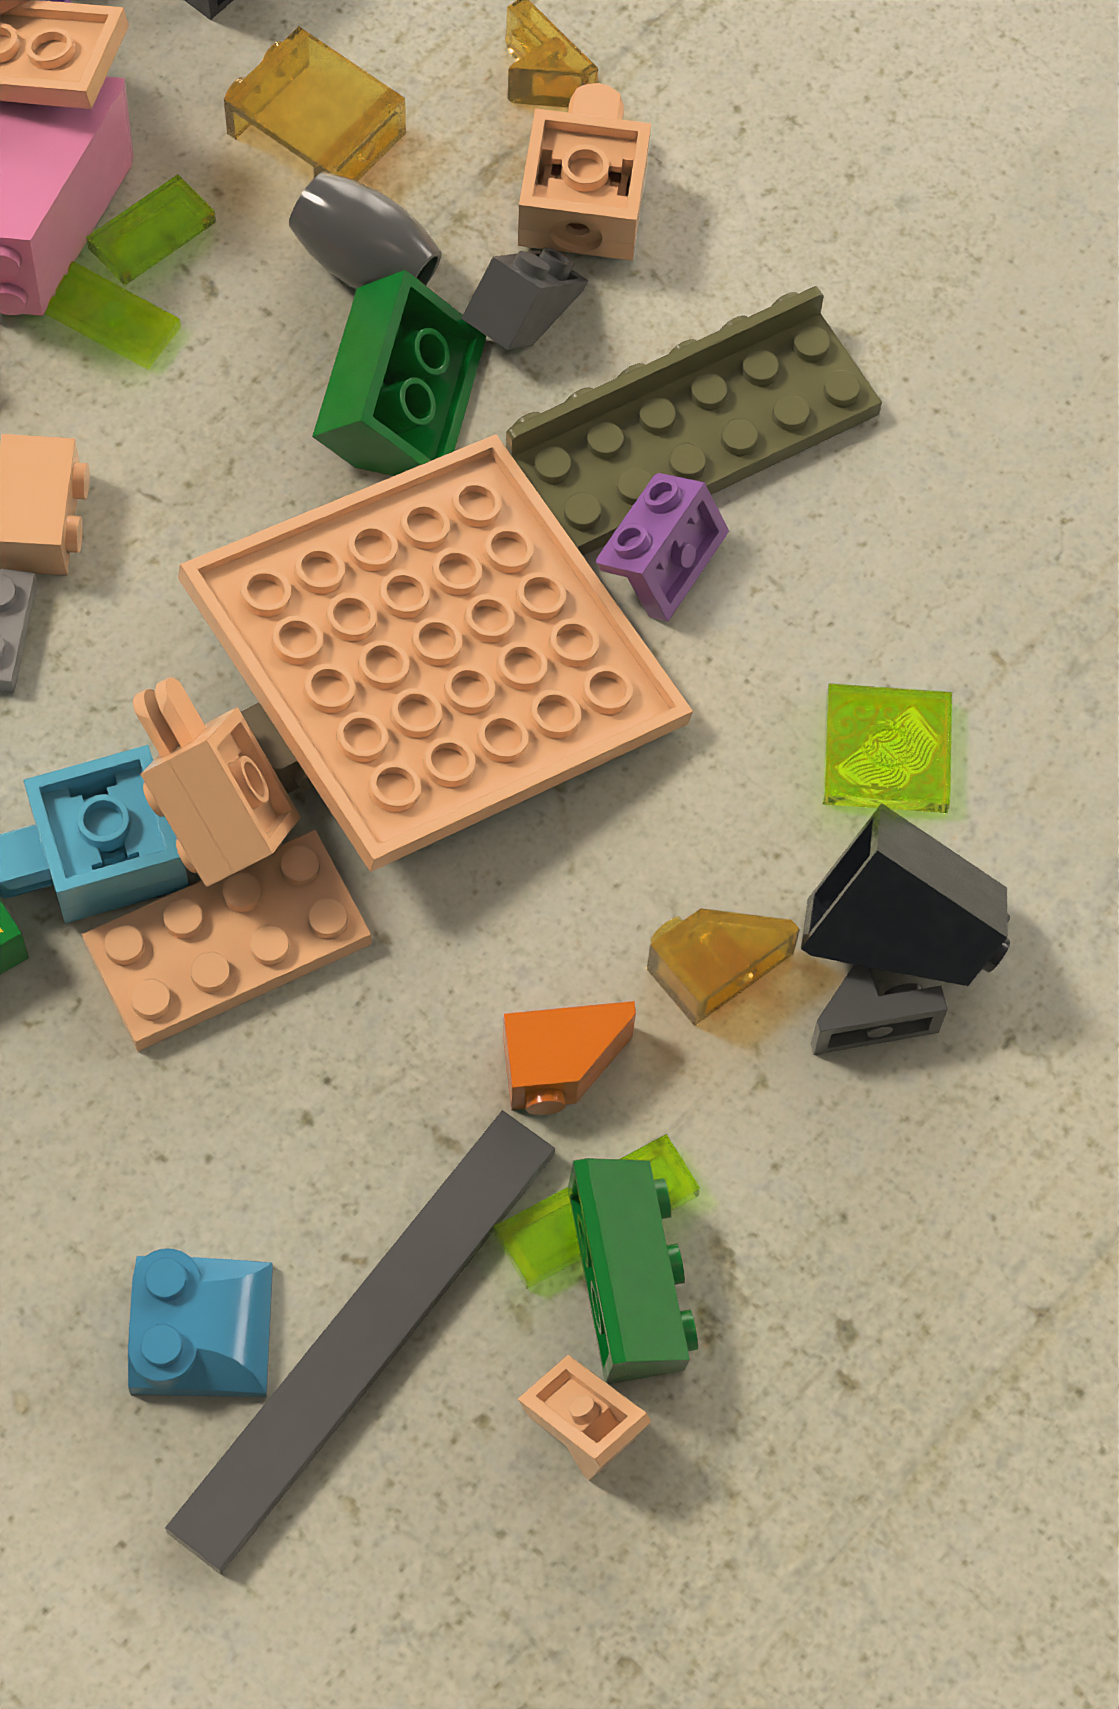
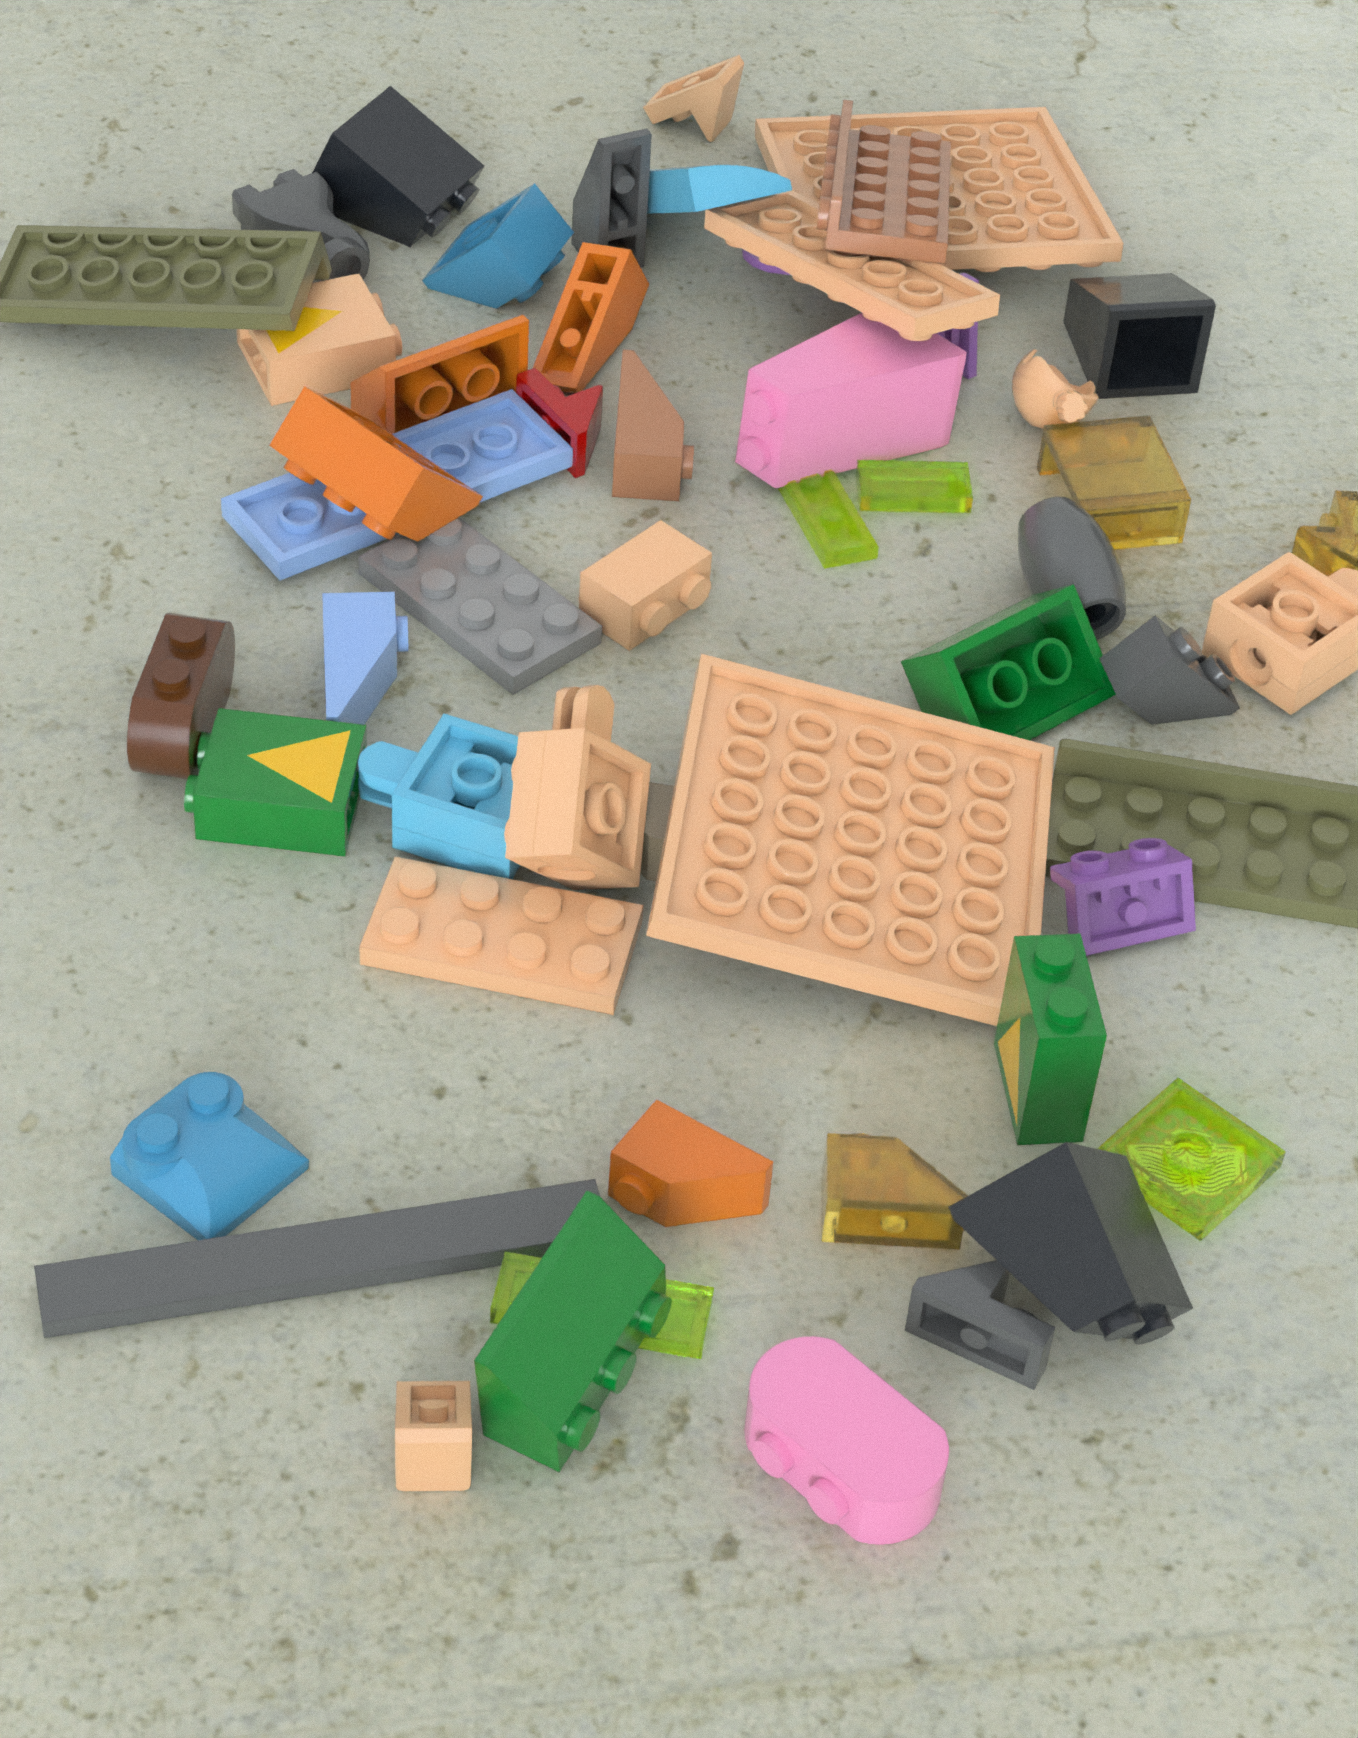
camera: 40 degrees right, 20 degrees down
(196, 53) = (1047, 396): none -> light nougat hair
(739, 734) = (1049, 1039): none -> green brick
(865, 1189) = (845, 1440): none -> bright pink brick

